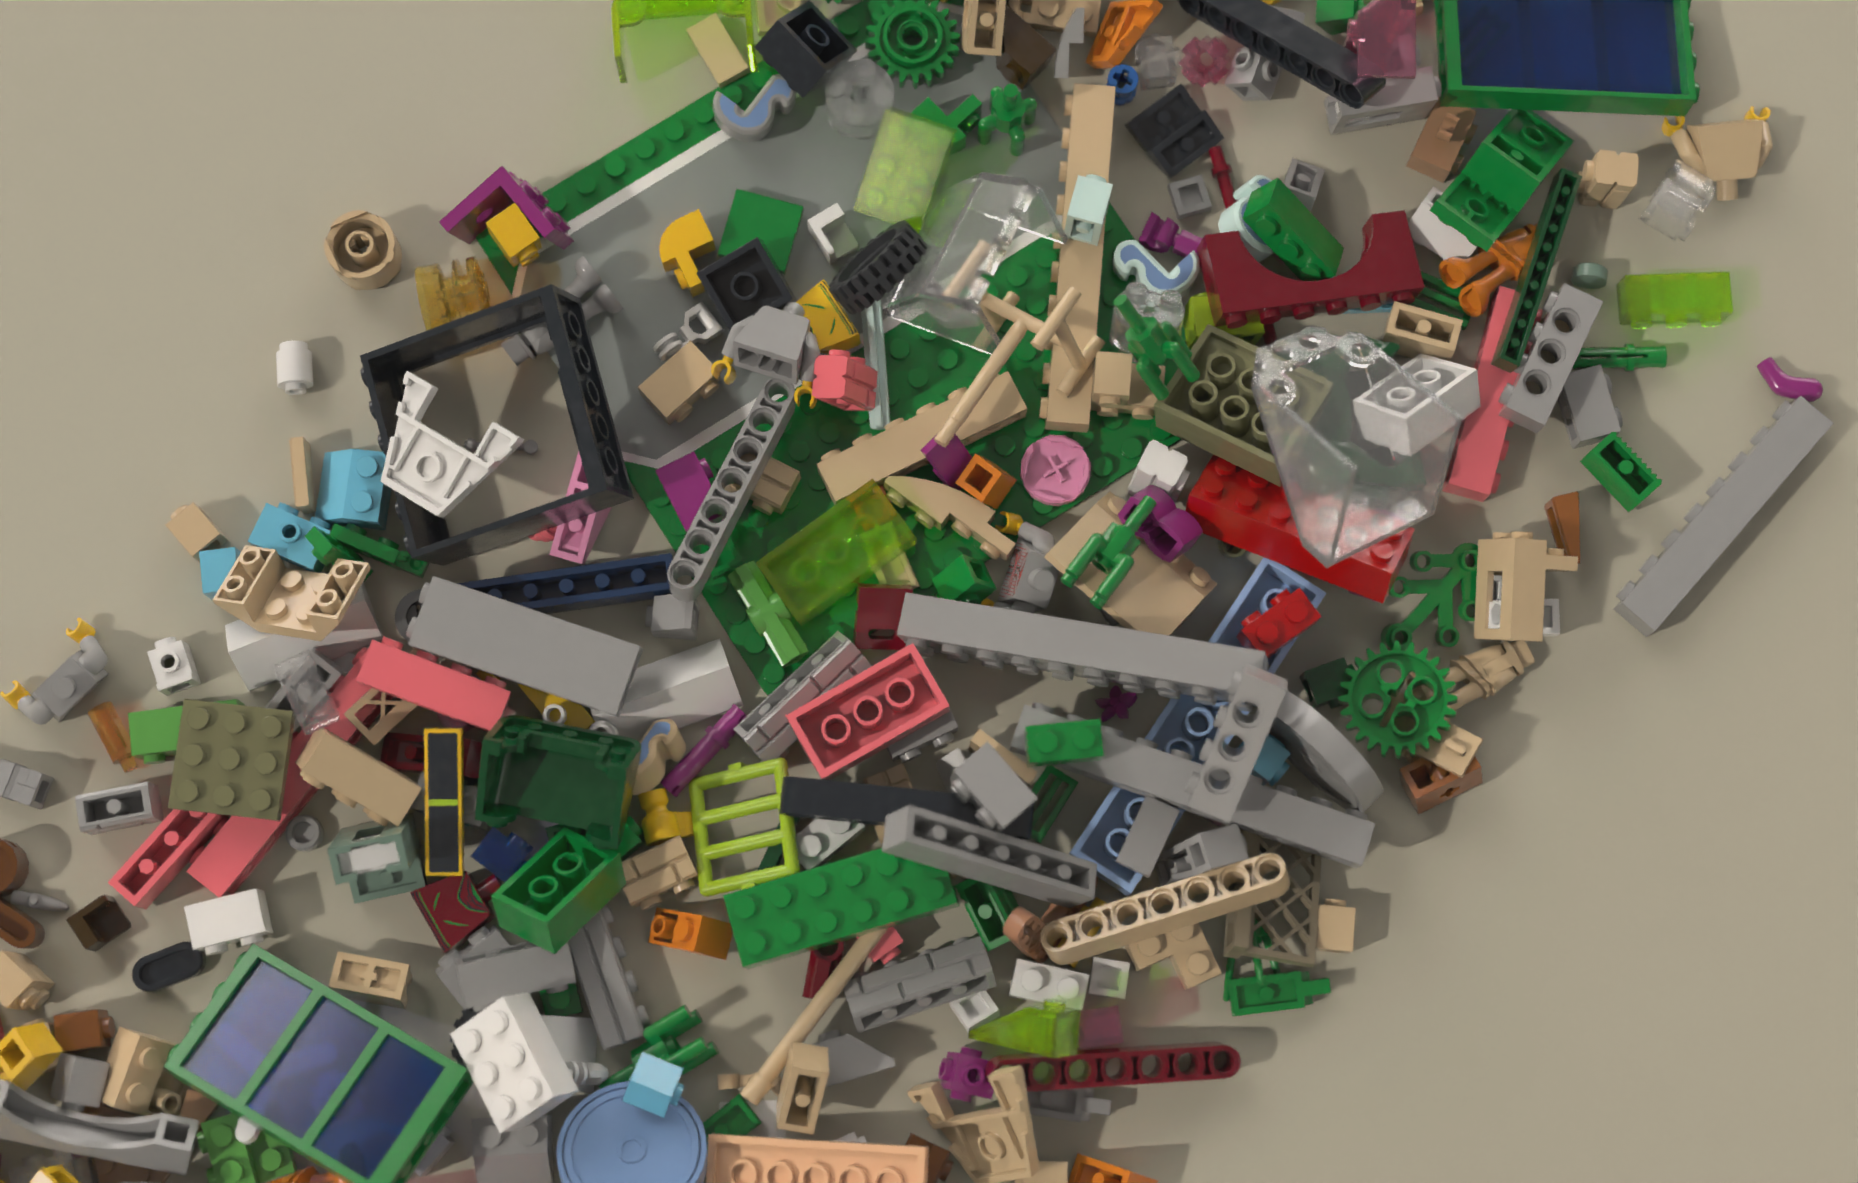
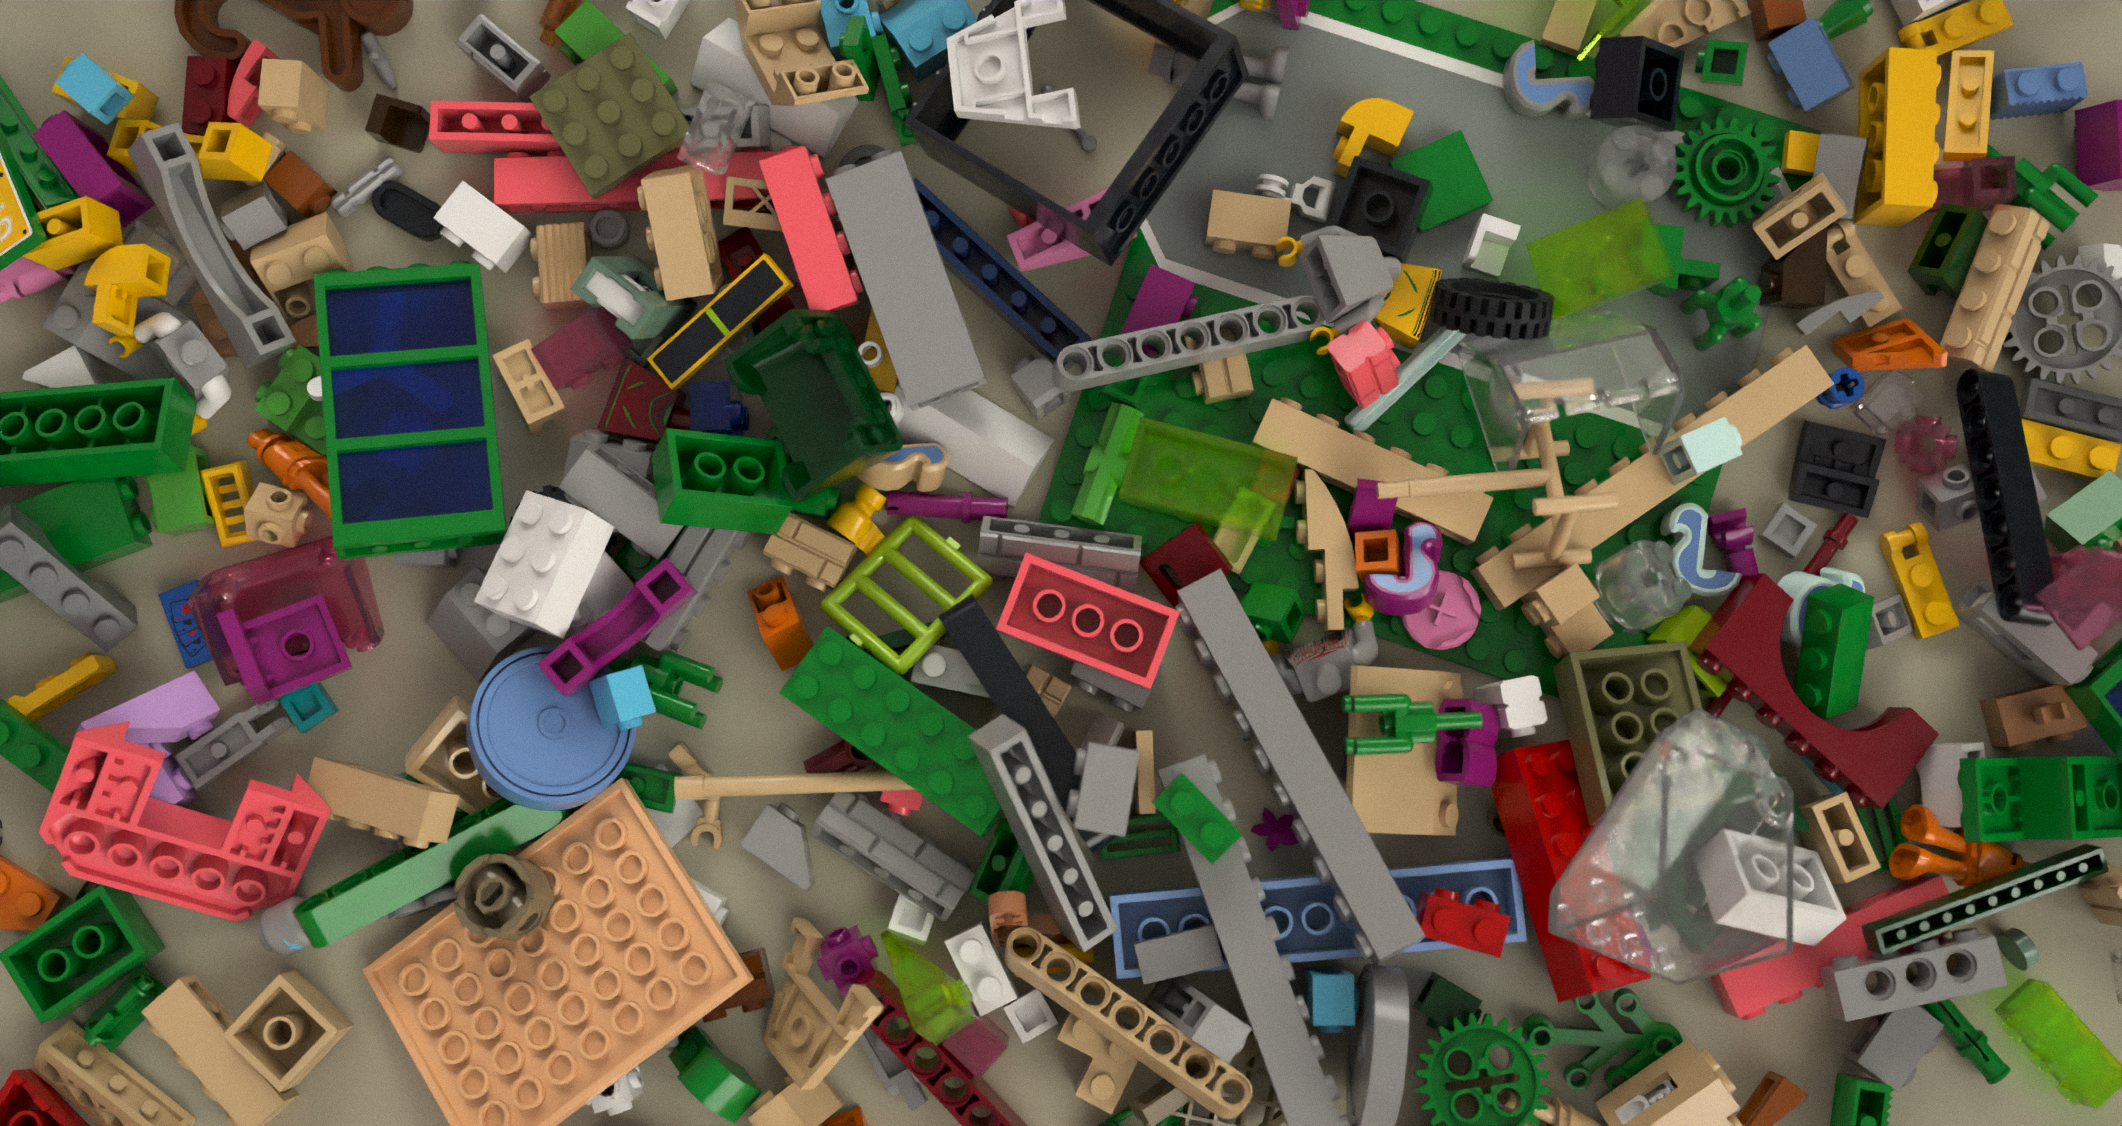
camera: 55 degrees right, 5 degrees up
(123, 985) = (364, 186): none -> light grey axle
(305, 885) = (561, 257): none -> tan brick
(377, 918) = (582, 349): none -> clear pink brick
(602, 1046) = (608, 638): none -> magenta arch
(802, 1087) = (720, 827): tan brick -> none
(1026, 470) = (1420, 577): none -> magenta animal
(1154, 345) = (1624, 609): green plant -> none
(1222, 797) = (1262, 999): light grey brick -> none
(1293, 139) = (1918, 581): none -> yellow plate

